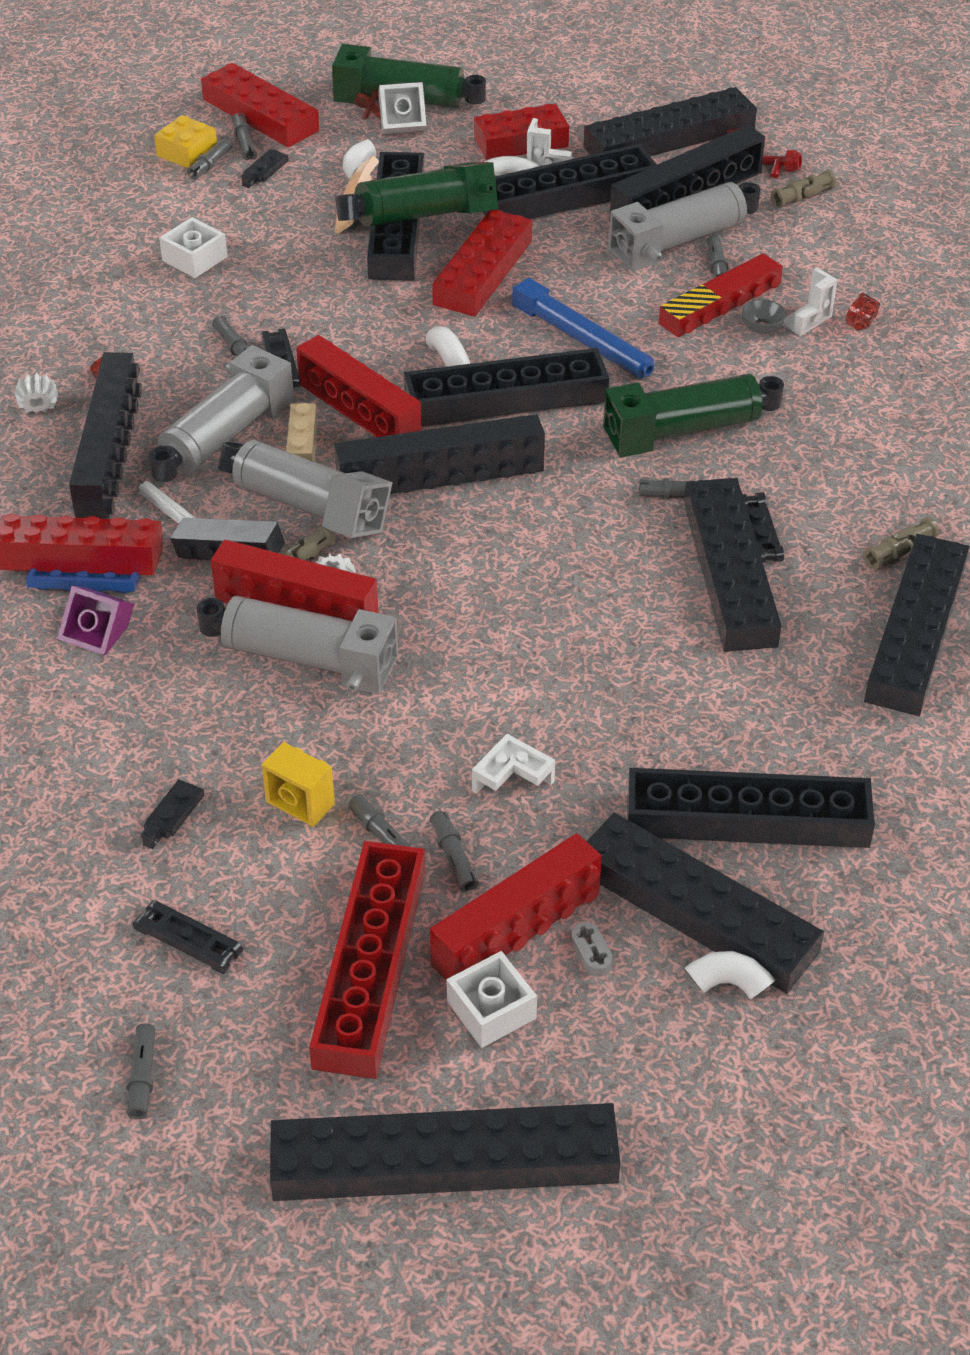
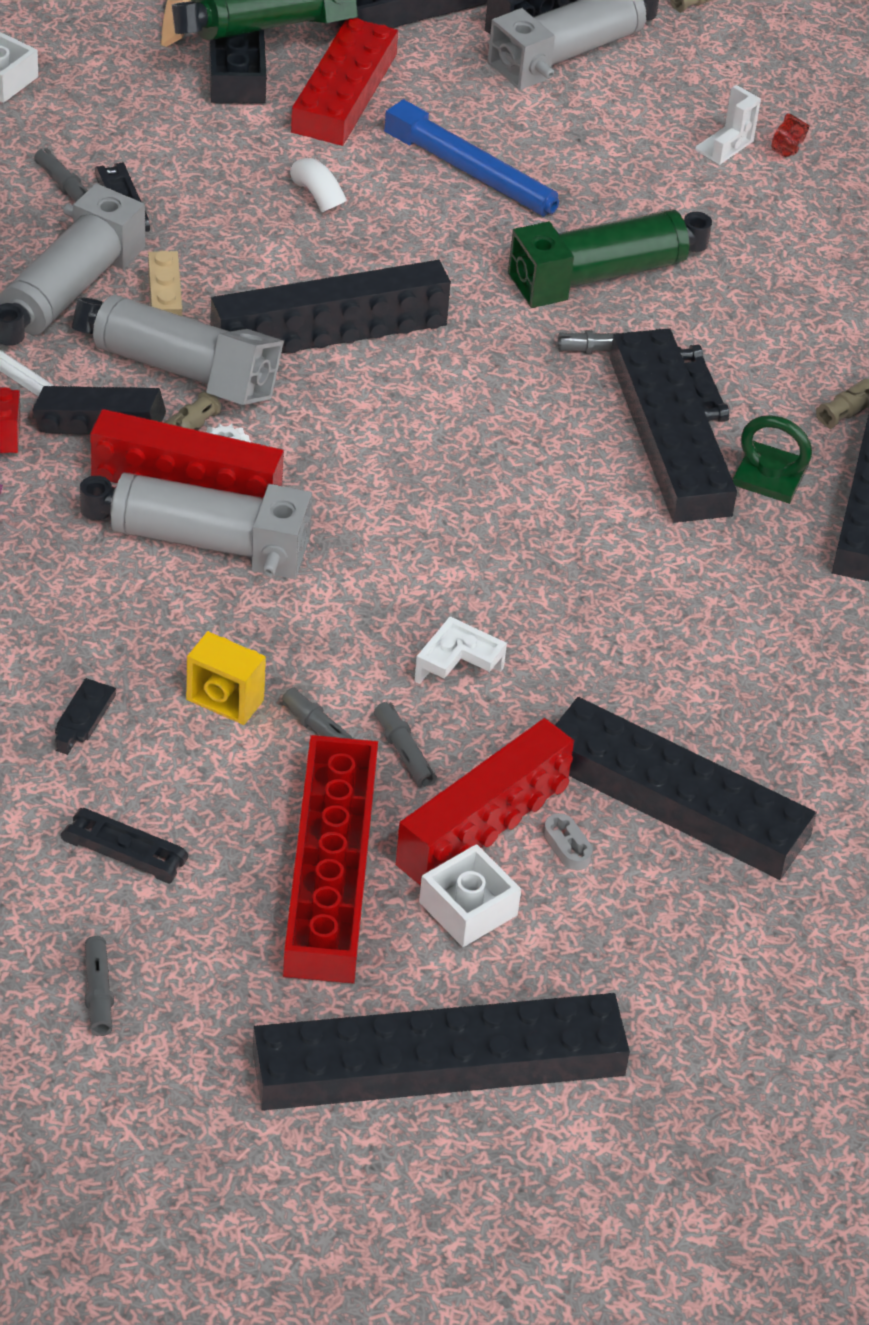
camera: 10 degrees left, 0 degrees up
(356, 389) = (221, 234): red brick -> none
(508, 386) = (392, 228): black brick -> none
(718, 263) = (618, 80): dark grey pin -> none
(720, 295) = (625, 117): red brick -> none
(730, 968) = (719, 854): white cylinder -> none
(752, 807) = (724, 687): black brick -> none
(763, 311) = (677, 136): dark grey piece -> none
(816, 605) = (770, 469): none -> dark green tile

